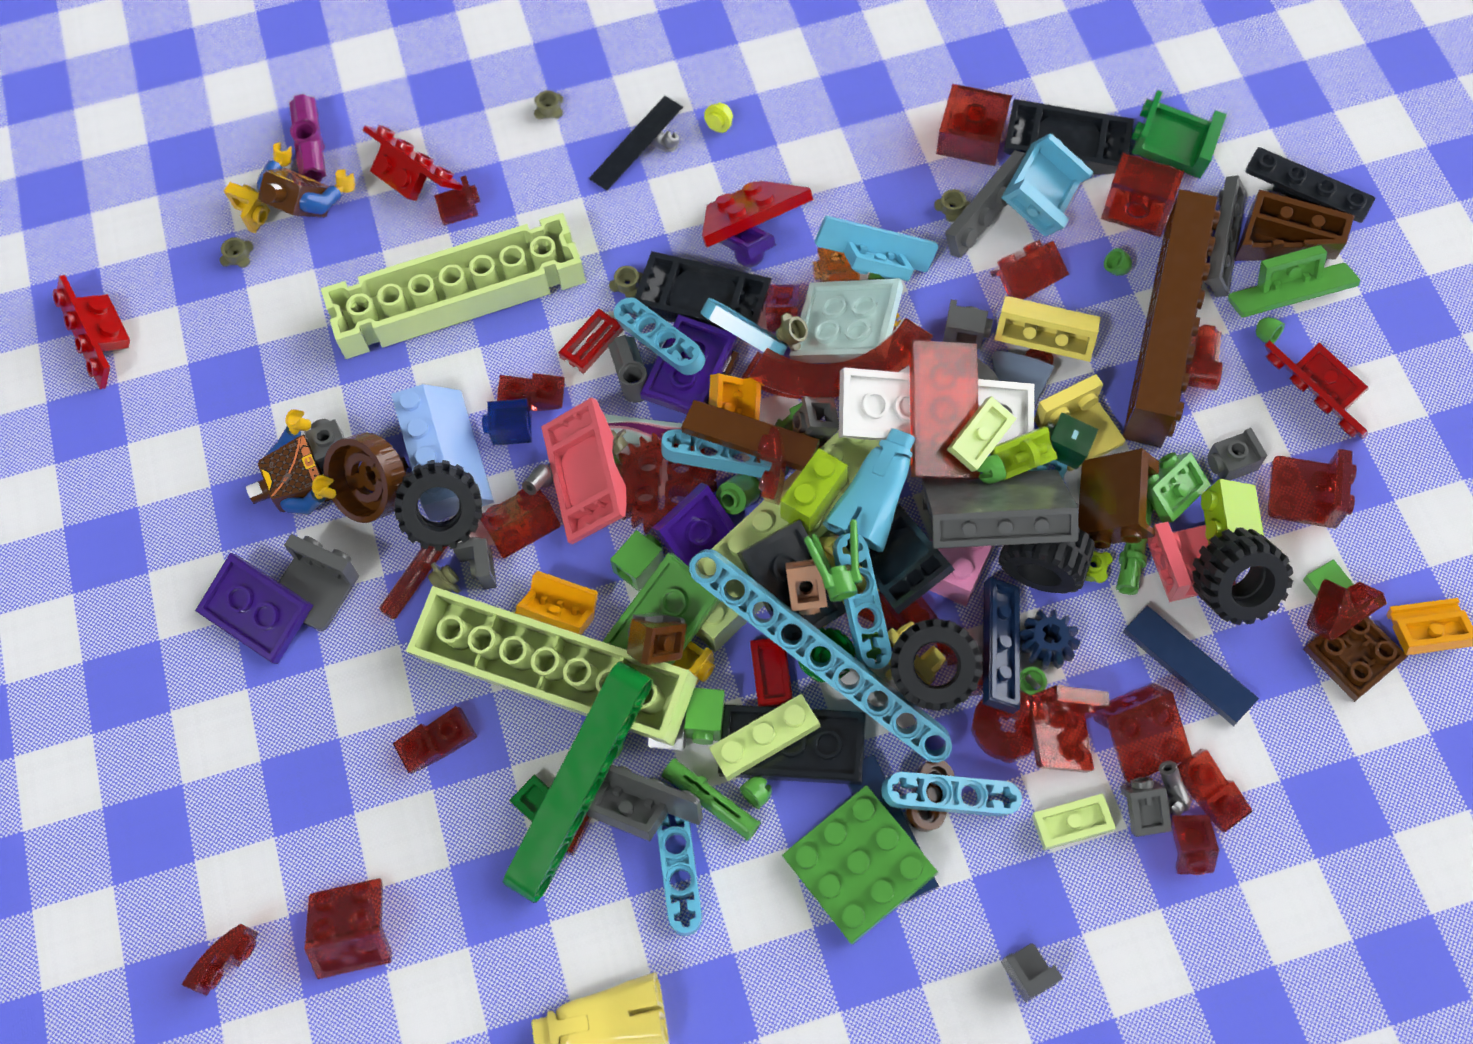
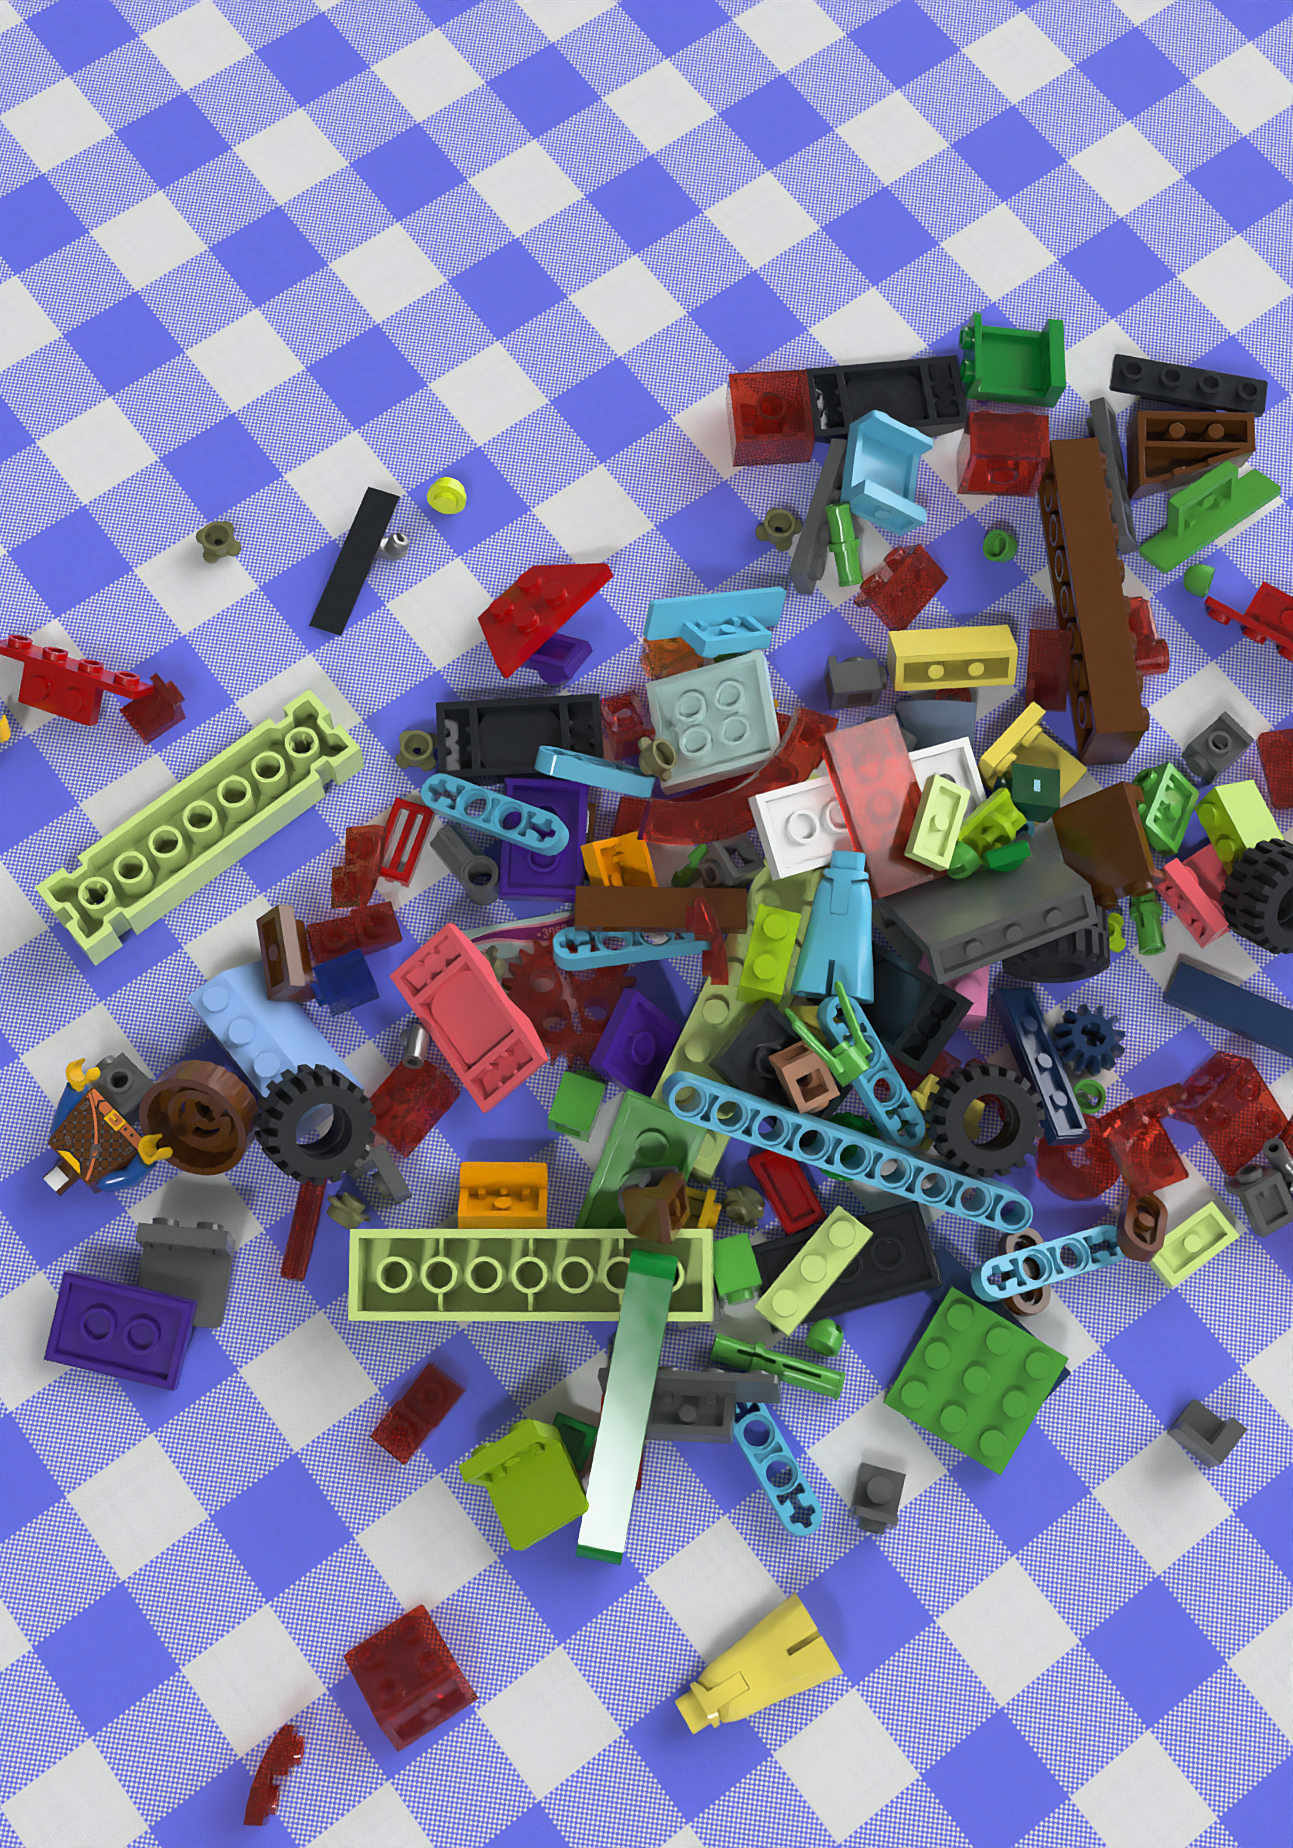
camera: 30 degrees left, 5 degrees up
(474, 389) = (285, 955): none -> reddish brown panel
(490, 813) = (528, 1481): none -> lime bracket
(544, 355) = (364, 855): none -> clear red slope
(732, 673) = (744, 1205): none -> olive plate
(738, 493) = (667, 983): bright green brick -> none
(748, 926) = (876, 1498): none -> dark grey bracket
(995, 225) = (844, 544): none -> bright green pin
(1026, 474) = (1006, 857): none -> green tile
(1036, 792) = (1141, 1227): none -> reddish brown plate
(1119, 356) = (1048, 669): none -> clear red slope

